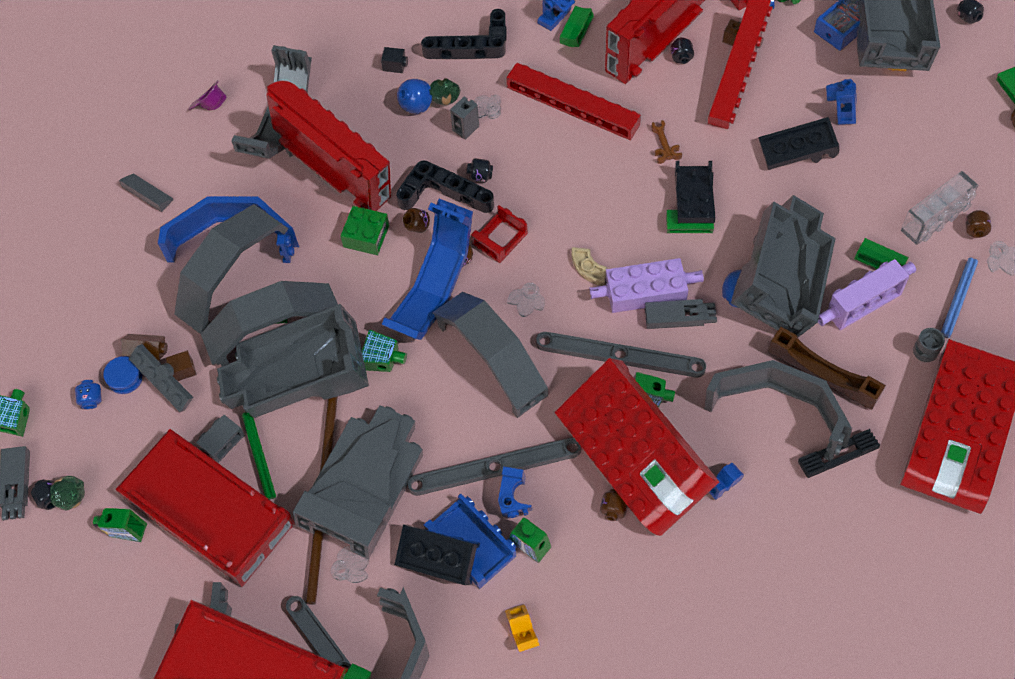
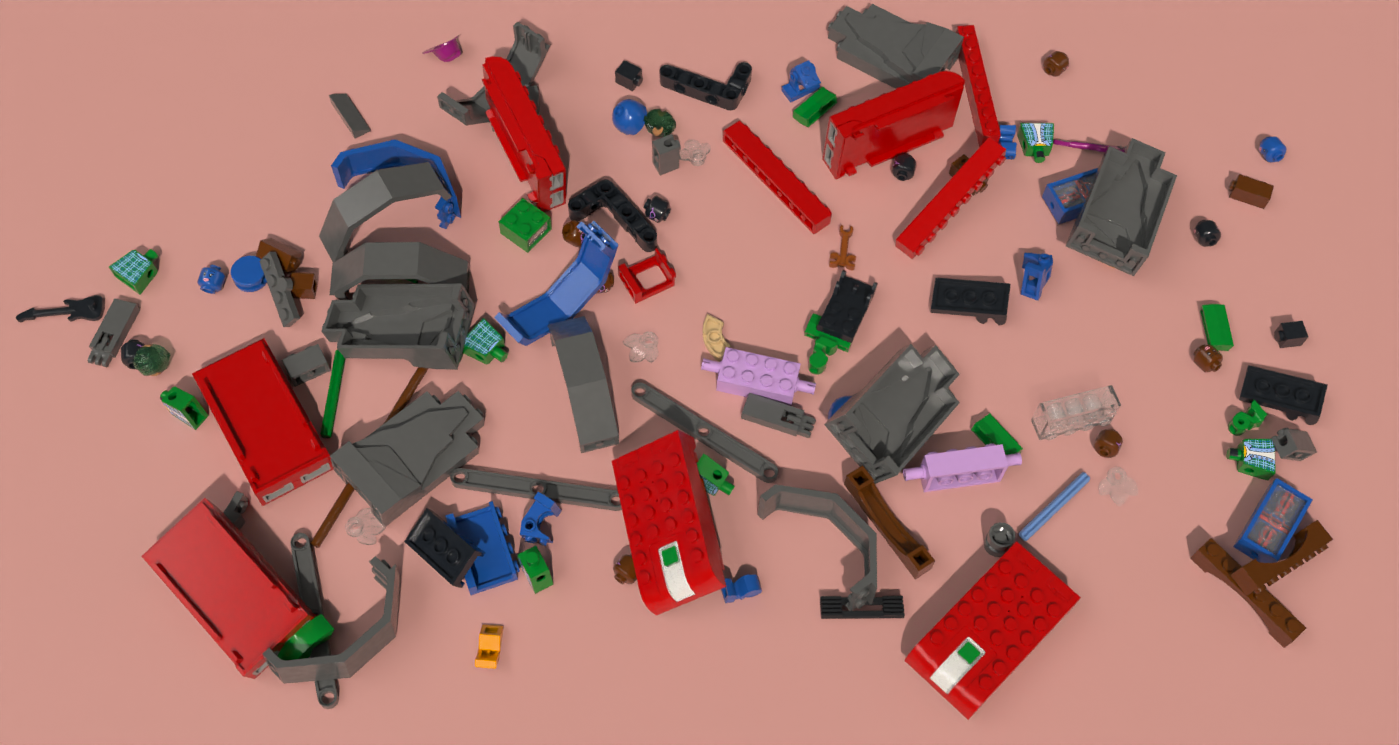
camera: 15 degrees right, 0 degrees up
(691, 247) = (818, 359): none -> green leg

